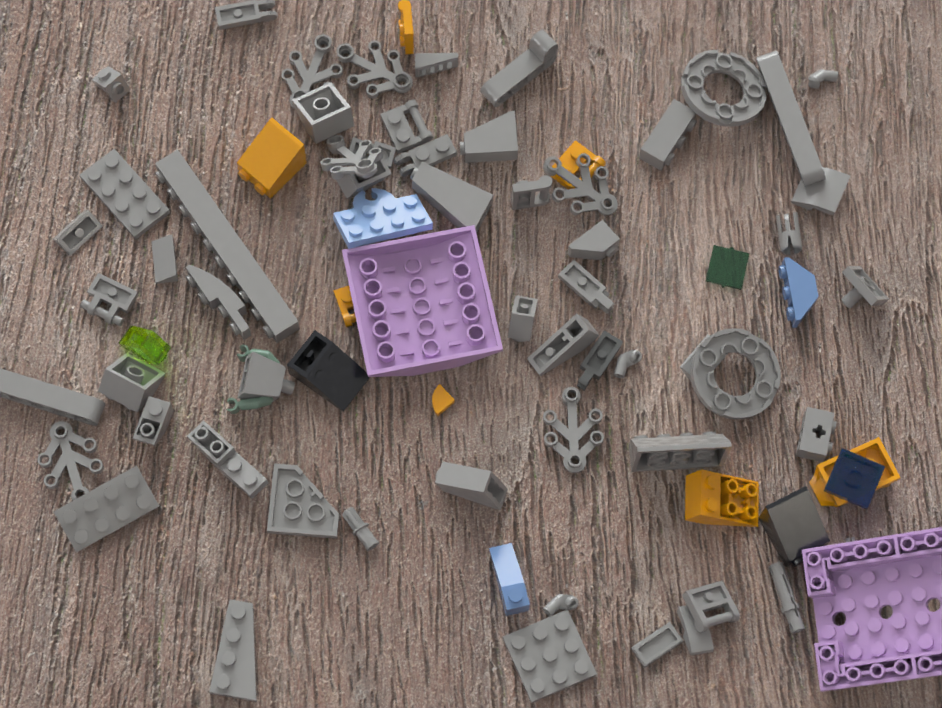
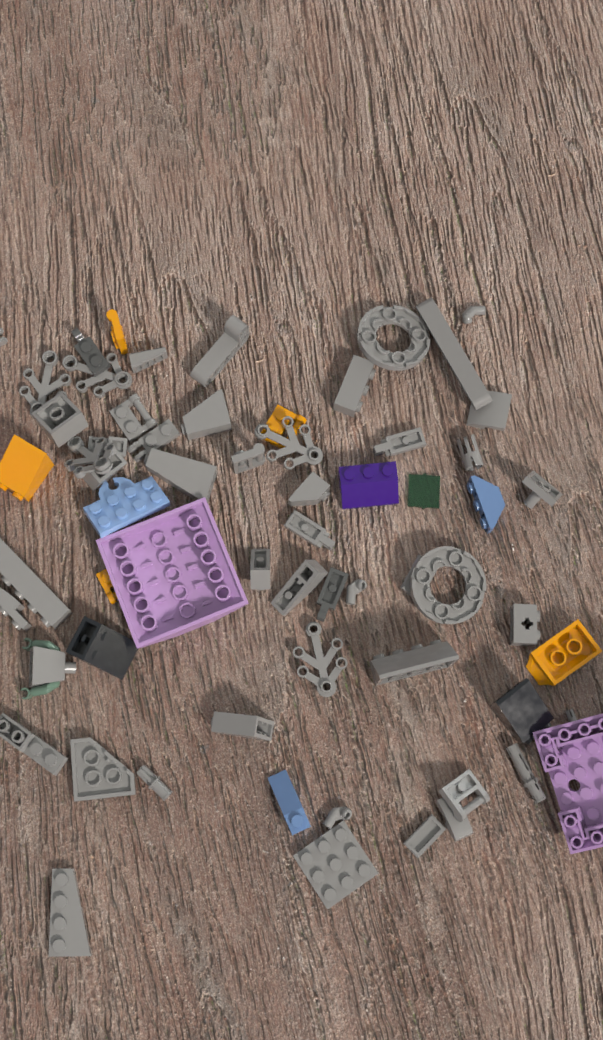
camera: 10 degrees left, 5 degrees up
(370, 46) = (90, 353): none -> dark grey plate
(441, 400) = (204, 654): light orange tile -> none
(664, 247) = (368, 485): none -> dark purple slope
(710, 208) = (400, 443): none -> light grey hinge
(721, 499) = (455, 697): light orange slope -> none
(854, 478) = (564, 659): clear blue tile -> none

